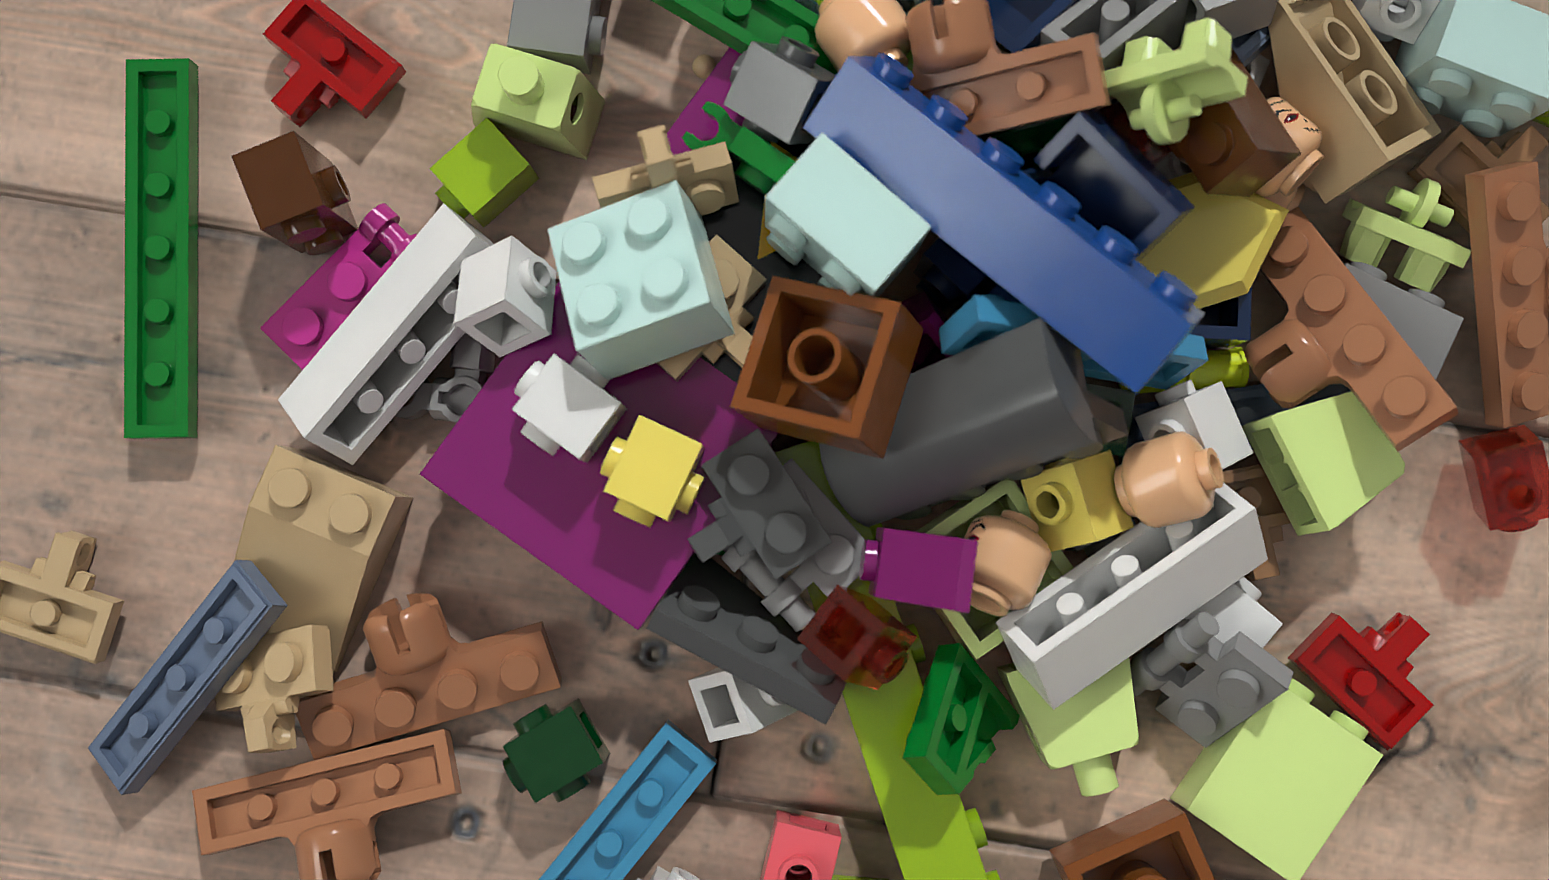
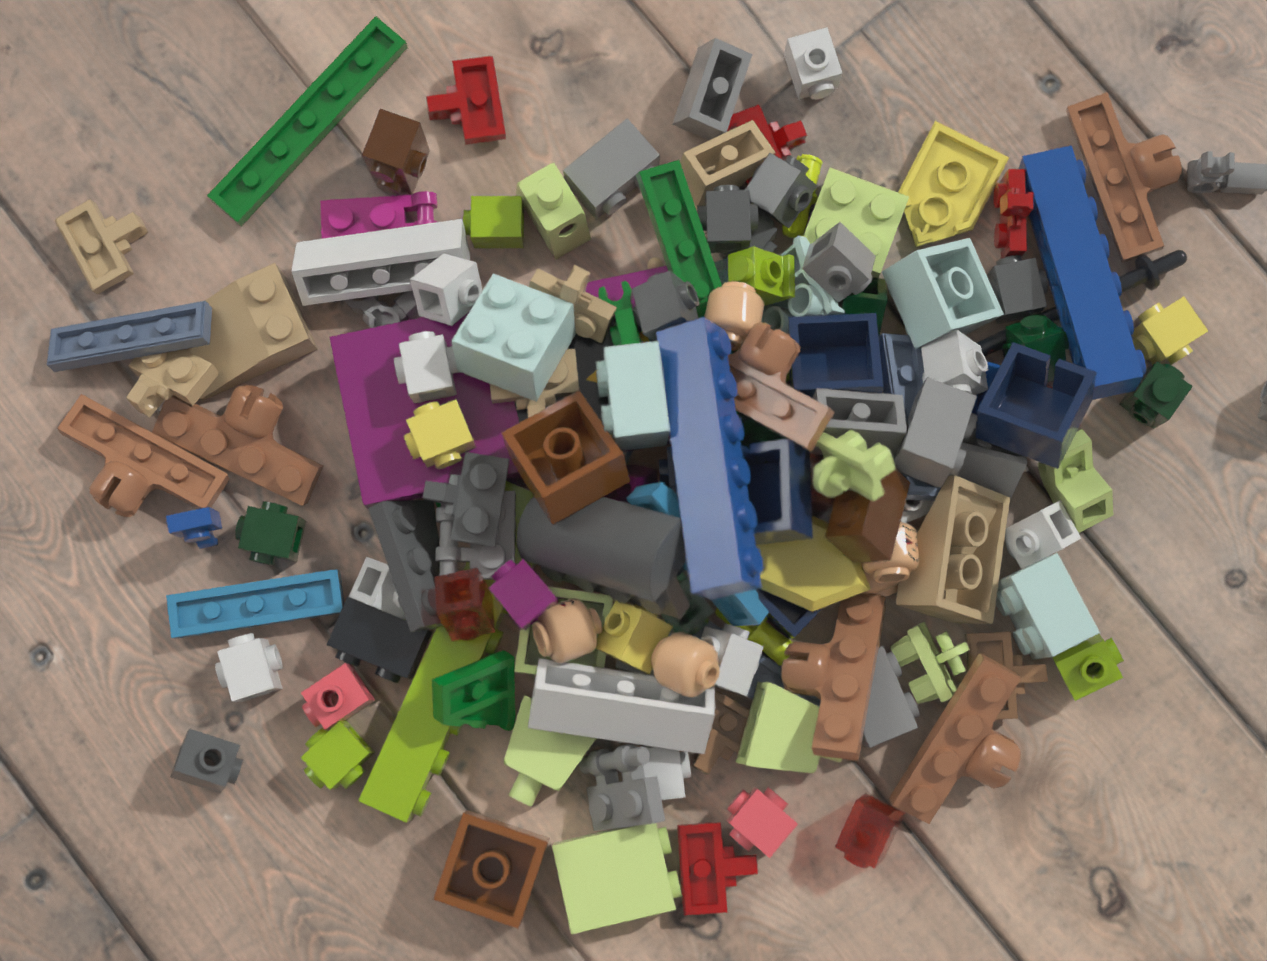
camera: 45 degrees right, 5 degrees down
(465, 823) = (196, 526): none -> blue plate
(784, 763) = (377, 639): none -> black brick
(1378, 574) = (760, 820): none -> coral brick

